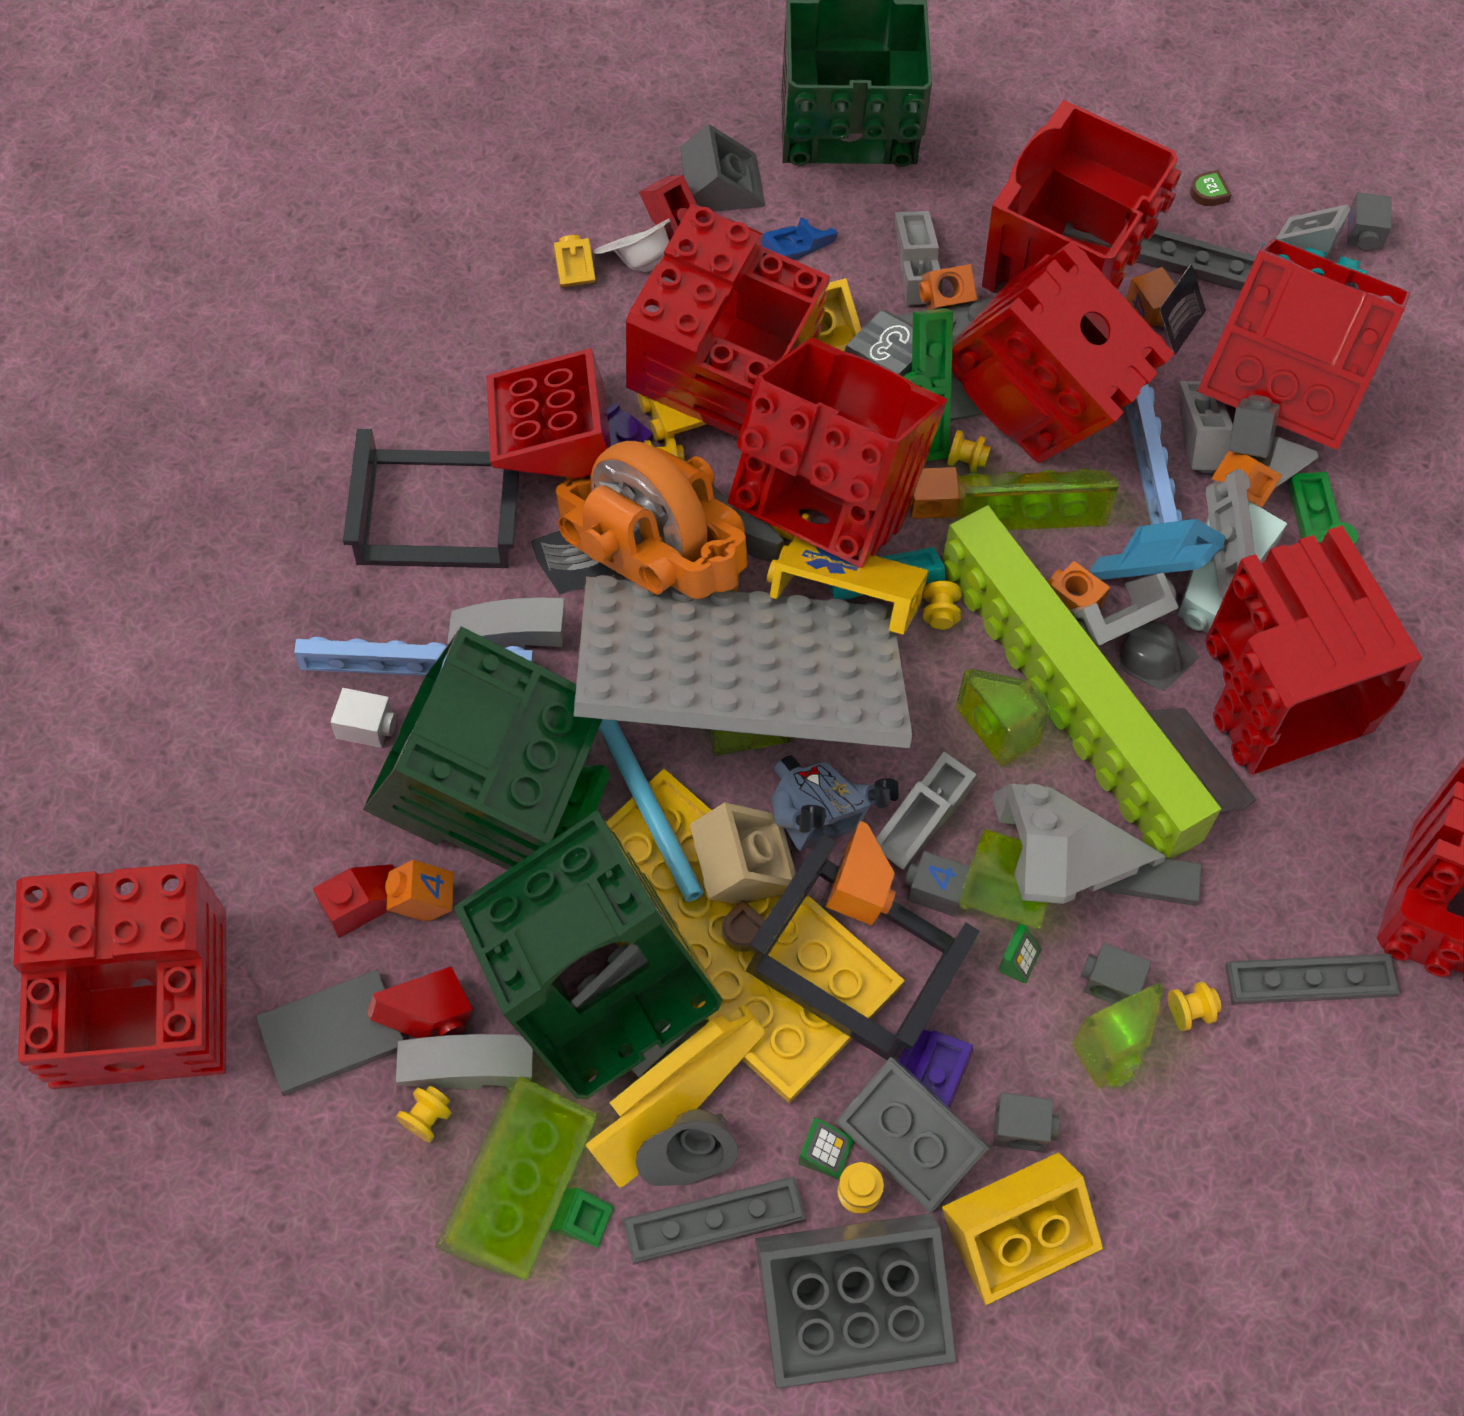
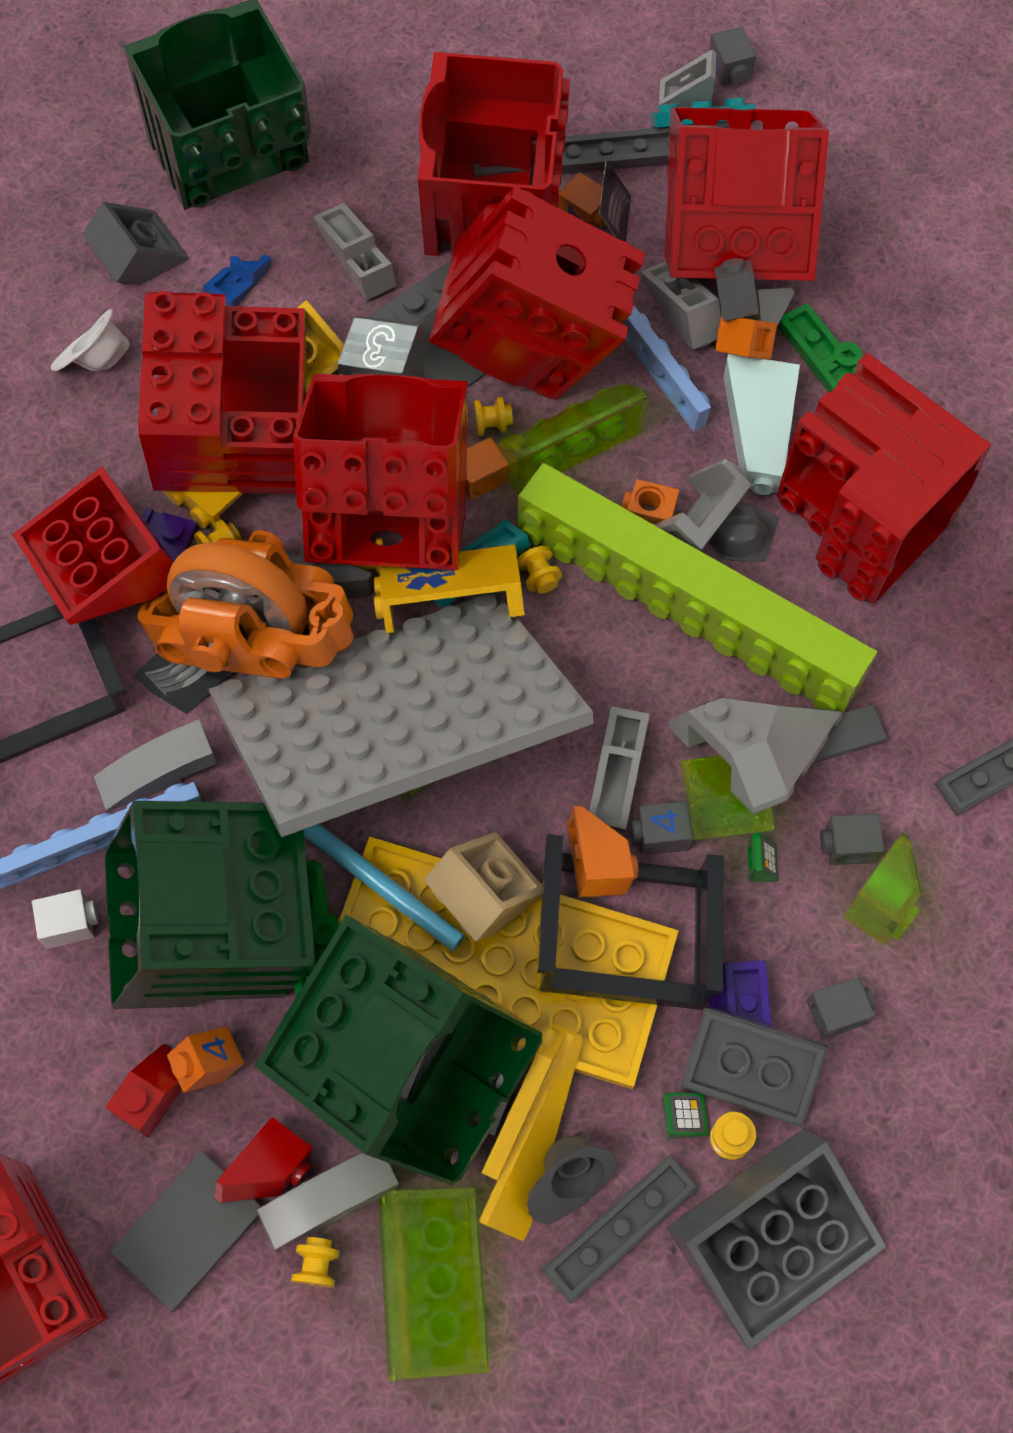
camera: 25 degrees left, 5 degrees up
(574, 261) = (37, 386): yellow bracket -> none
(582, 1217) = (506, 1285): green slope -> none
(668, 200) = (102, 289): red slope -> none
(741, 926) = (516, 951): reddish brown tile -> none
(823, 801) = (527, 802): sand blue torso -> none
(933, 367) = (427, 343): green hinge -> none
(961, 280) = (414, 263): orange brick -> none
(1003, 713) = (644, 647): clear neon green slope -> none
(1023, 1227) = (885, 1100): yellow slope -> none
(1163, 549) = (711, 437): dark azure plate -> none
(1201, 1003) = (935, 828): yellow wheel -> none
(1203, 758) = (831, 608): dark grey tile -> none
(1210, 189) = (582, 80): tile -> none
(1231, 517) = (760, 394): light grey plate -> none

